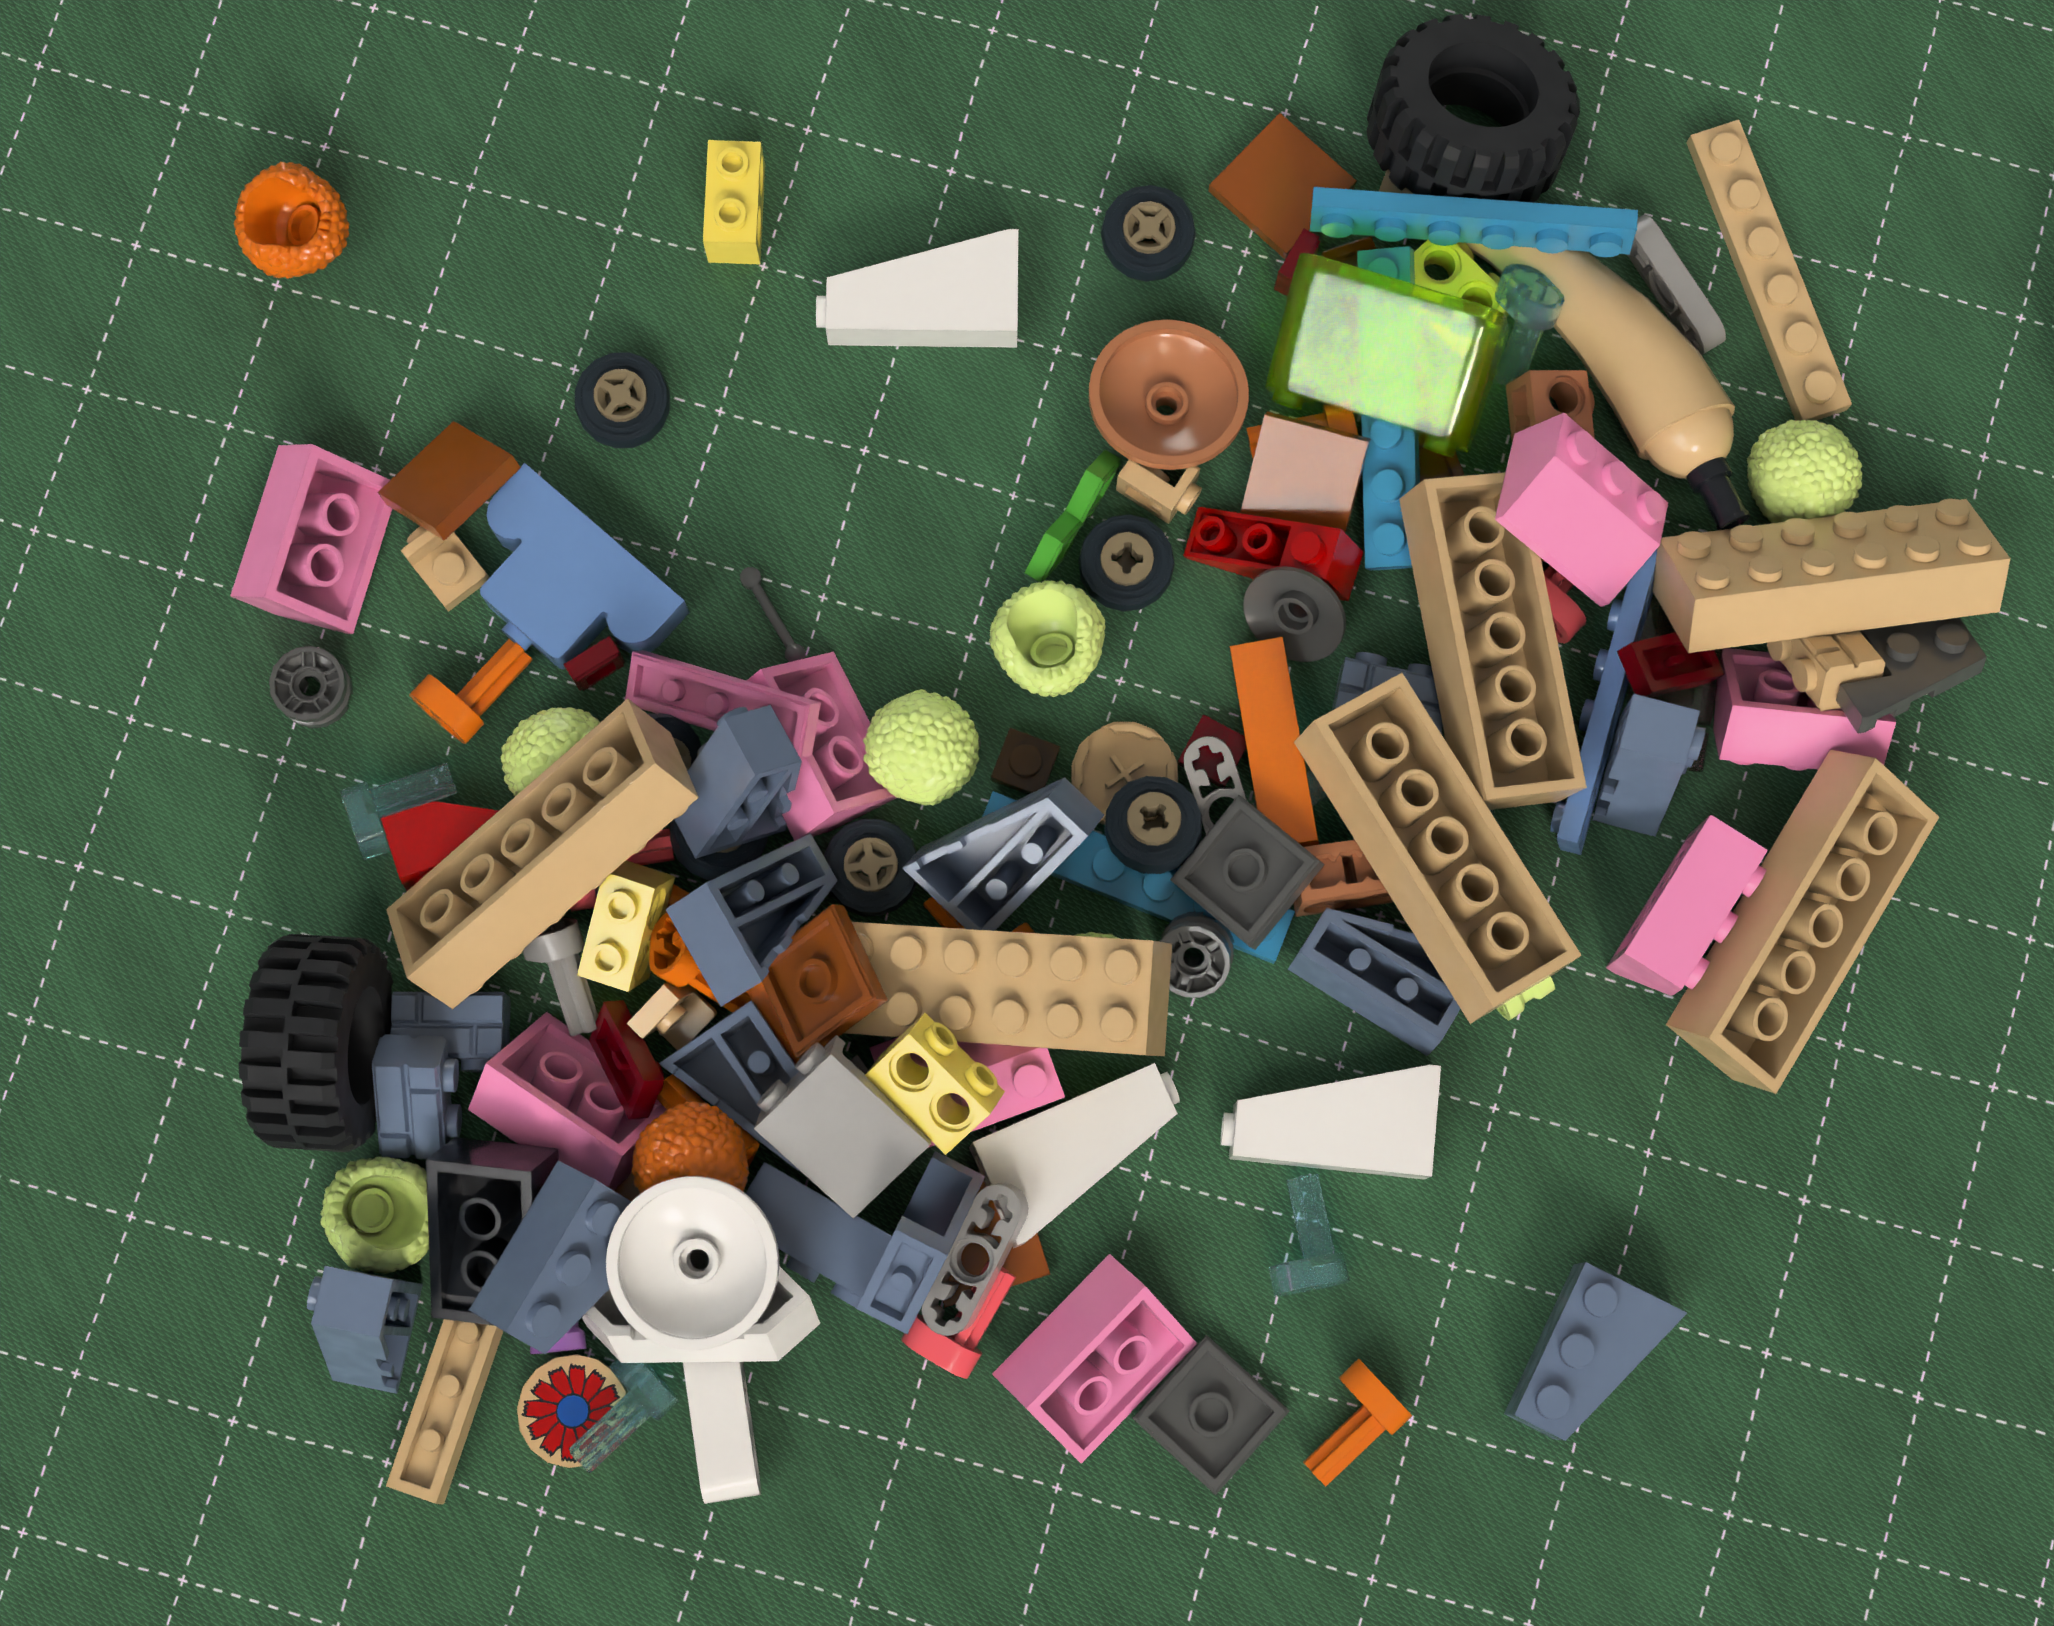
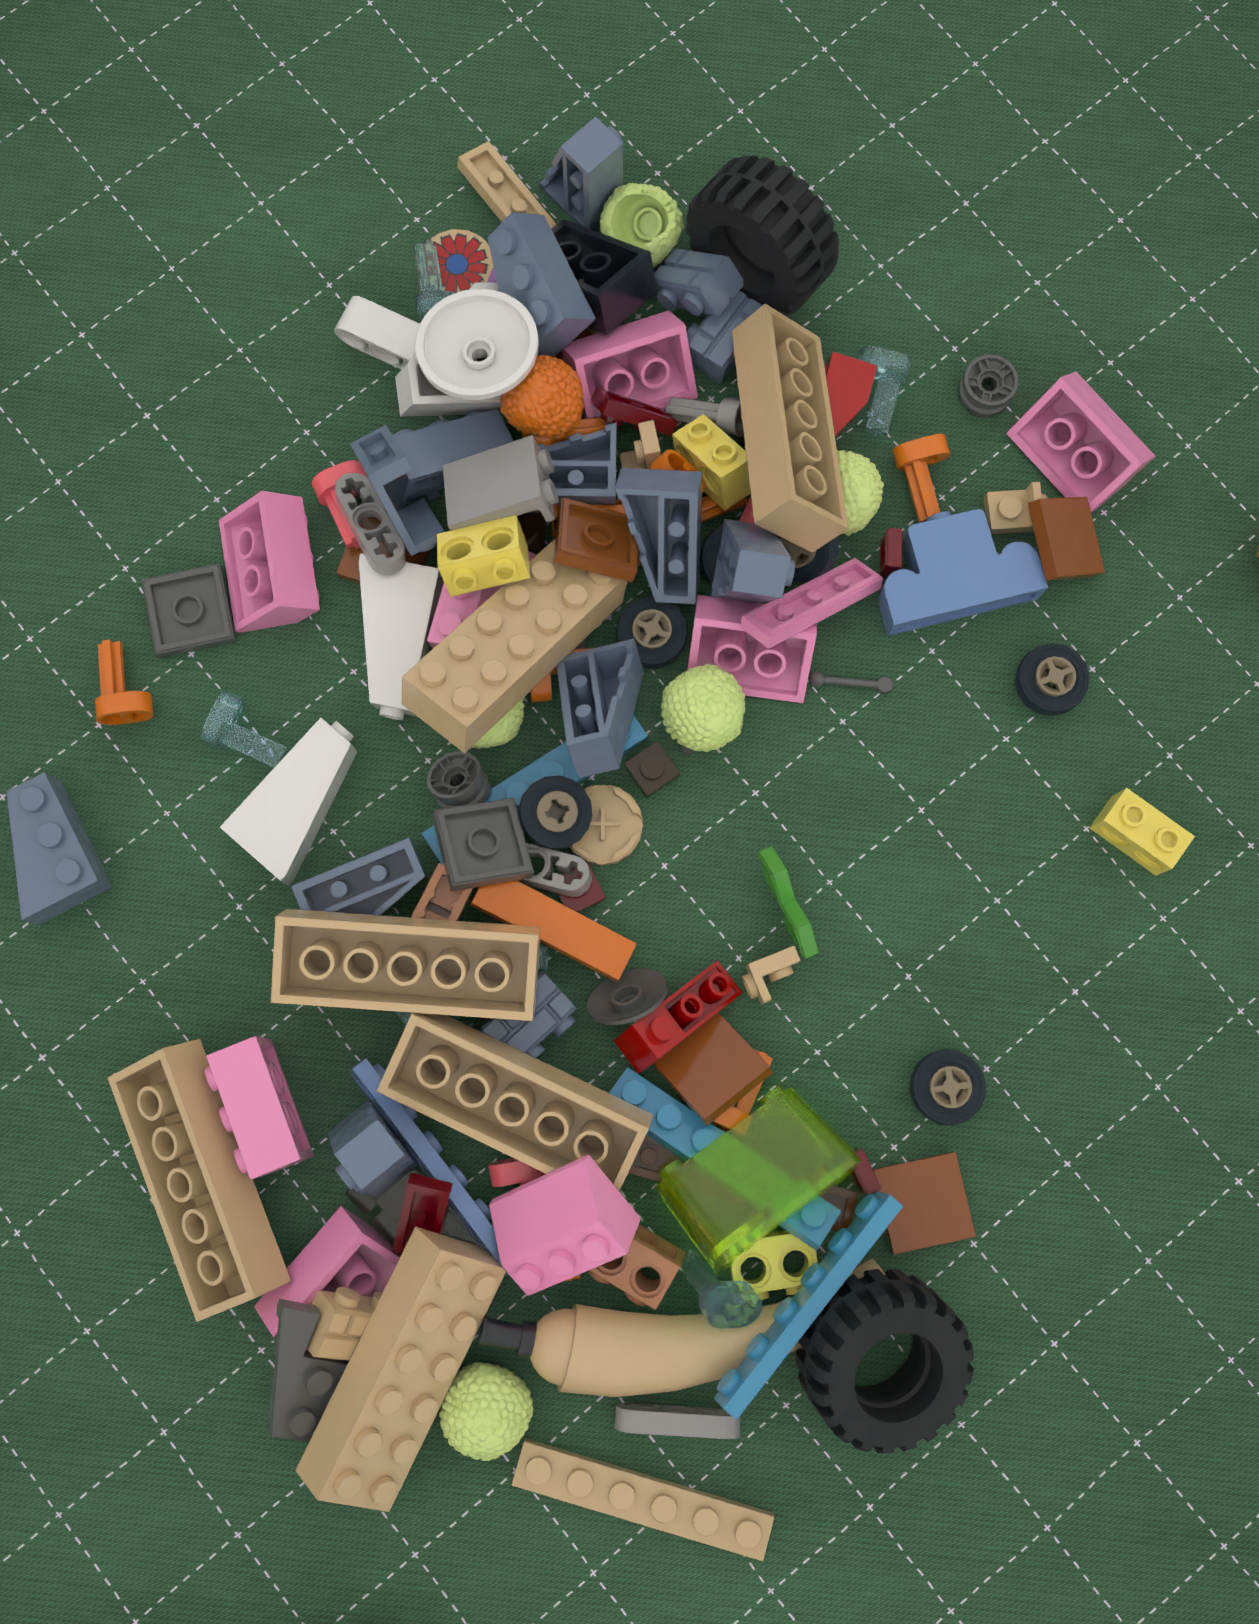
camera: 125 degrees right, 0 degrees up
(929, 299) = (993, 917): white slope -> none
(1048, 637) = (718, 829): yellowish green hair -> none
(1123, 582) = (725, 928): black wheel -> none
(1173, 367) = (854, 1020): nougat dish -> none

